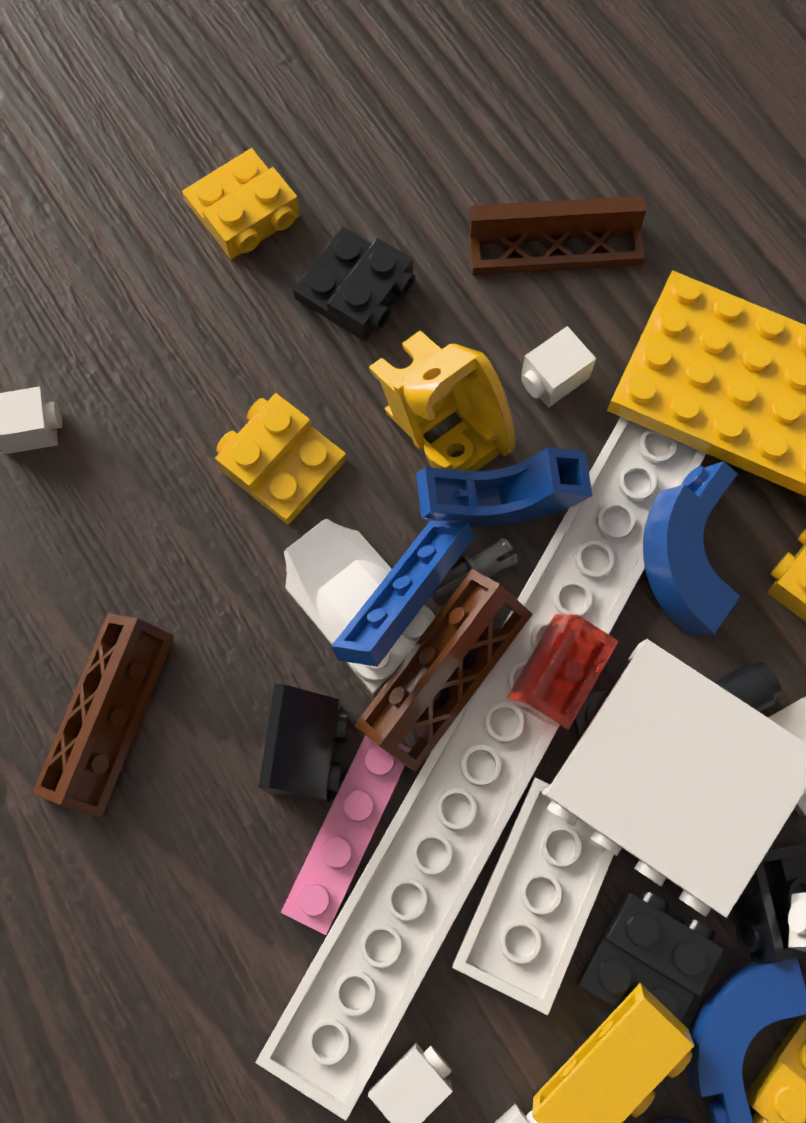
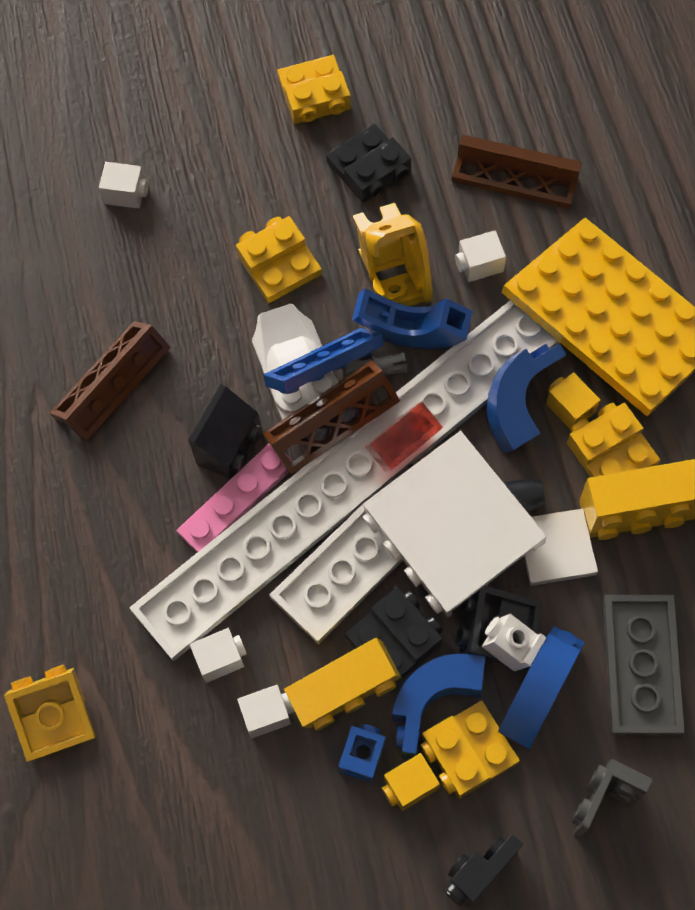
camera: 20 degrees right, 5 degrees down
(758, 532) = (572, 400): none -> yellow brick

